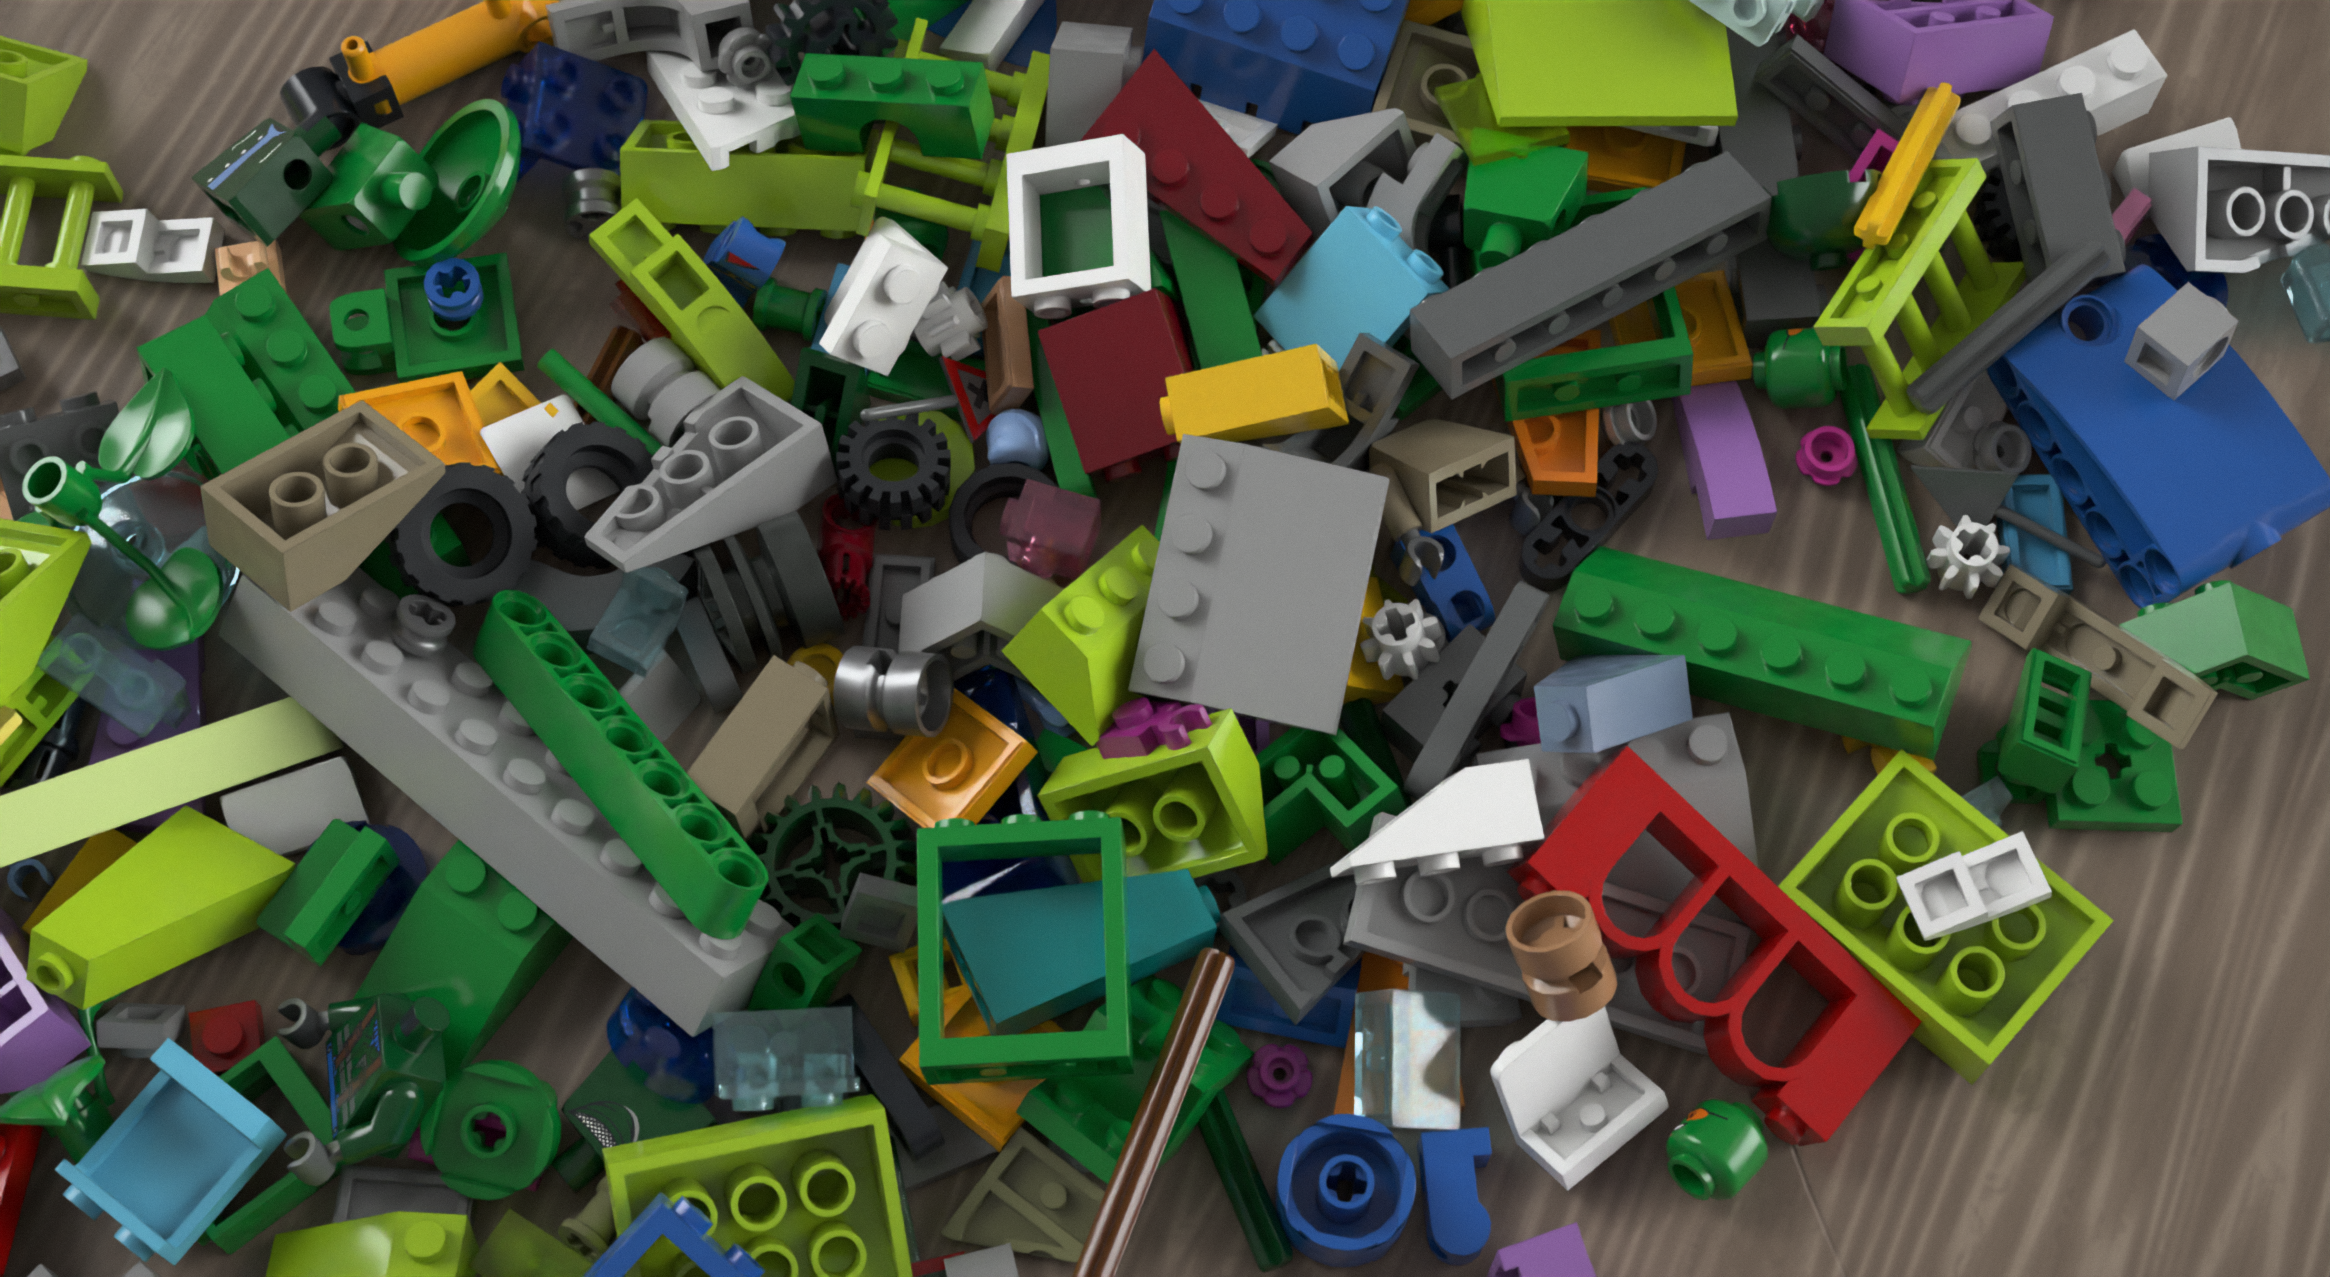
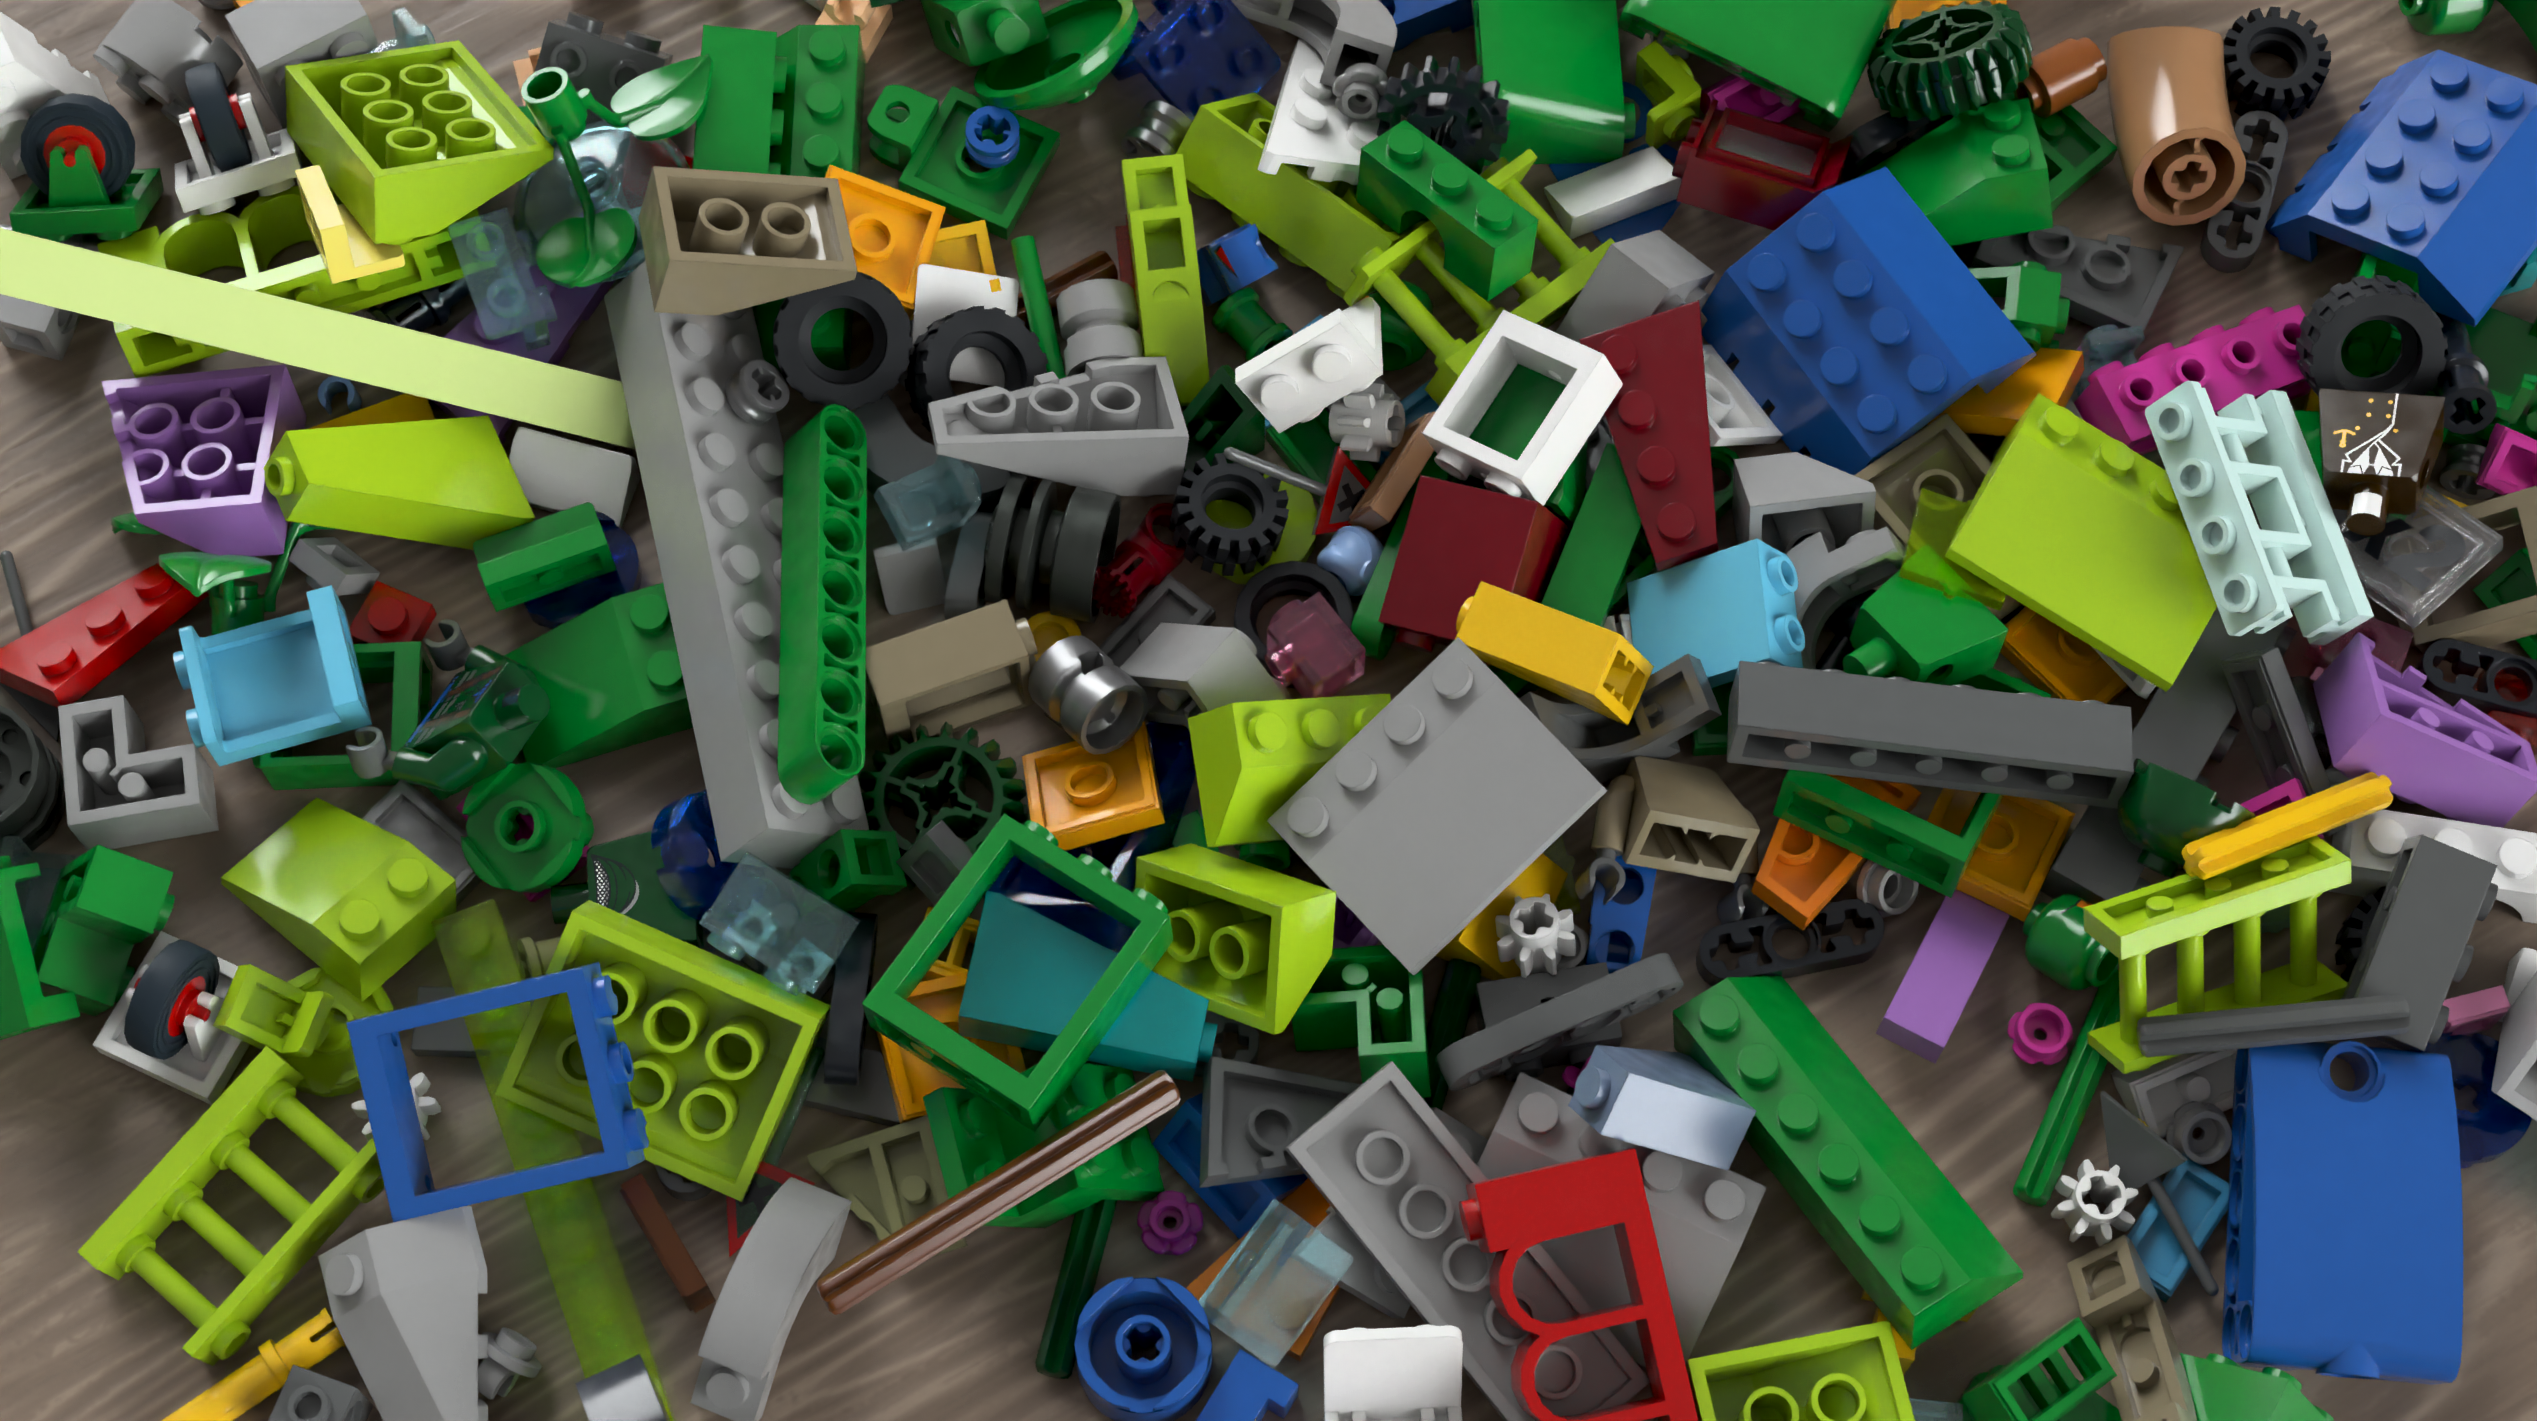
camera: 35 degrees right, 0 degrees up
(1145, 725) = (1261, 859): magenta plate -> none
(1468, 815) = (1452, 1110): white slope -> none
(1561, 955) = (1448, 1282): medium nougat wheel -> none
(2181, 340) = (2410, 1140): light grey brick -> none

